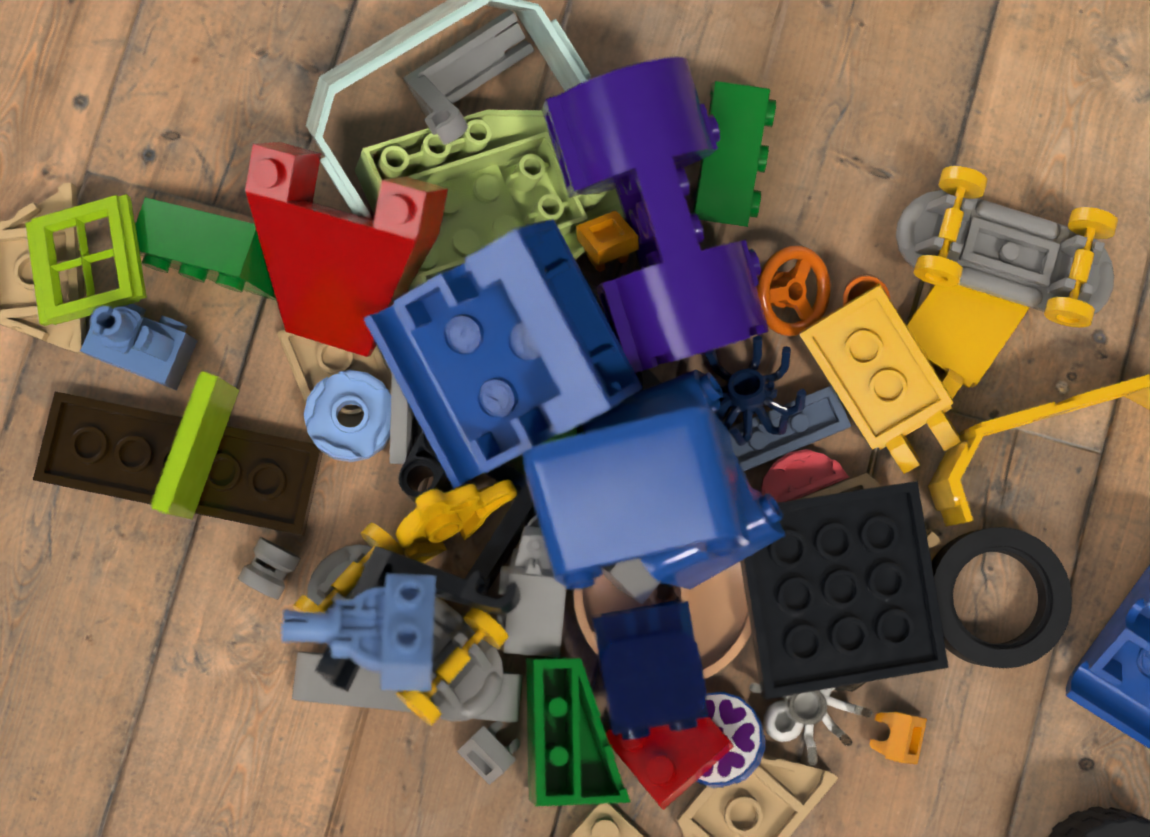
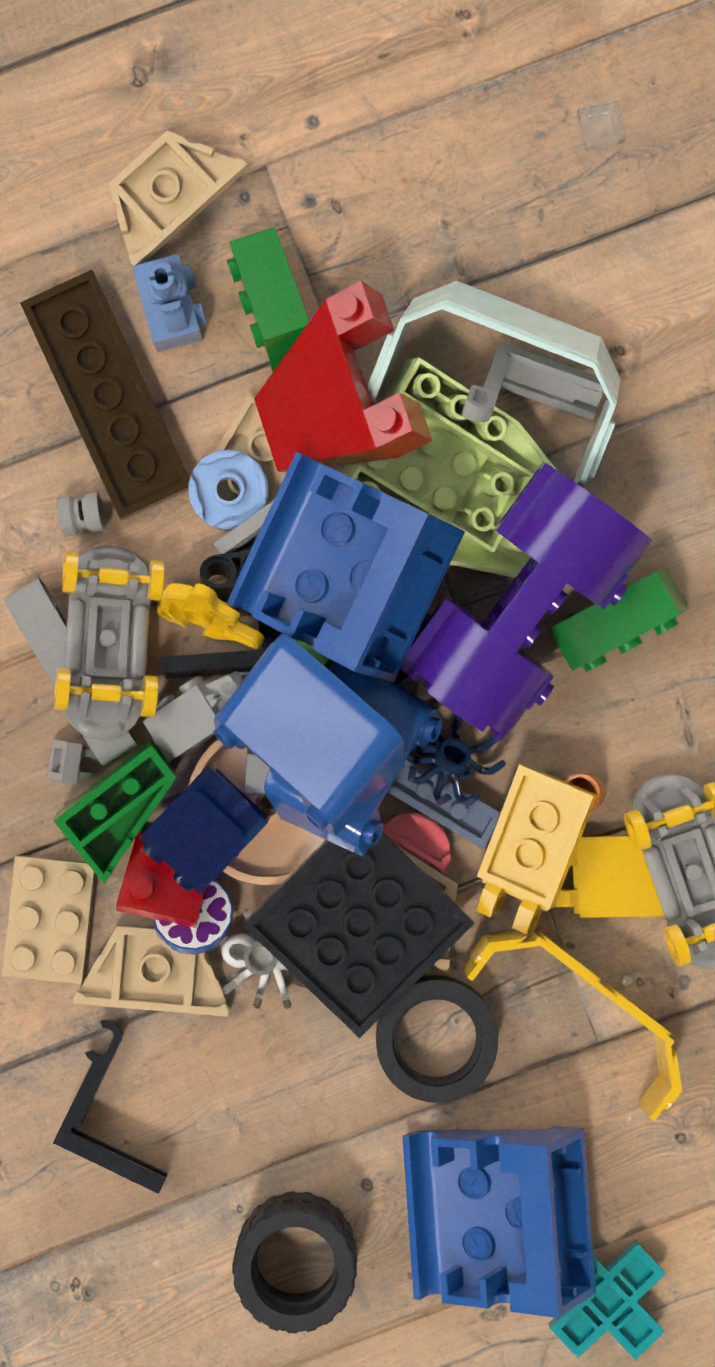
camera: 50 degrees right, 5 degrees up
(46, 269) = (226, 241): lime piece -> none
(195, 446) = (123, 401): lime tile -> none
(342, 671) = (111, 603): black hinge -> none
(378, 630) = (89, 624): medium blue brick -> none
(607, 239) = (487, 577): light orange tile -> none
(789, 289) = (550, 732): orange piece -> none
(904, 739) = (289, 1043): light orange tile -> none

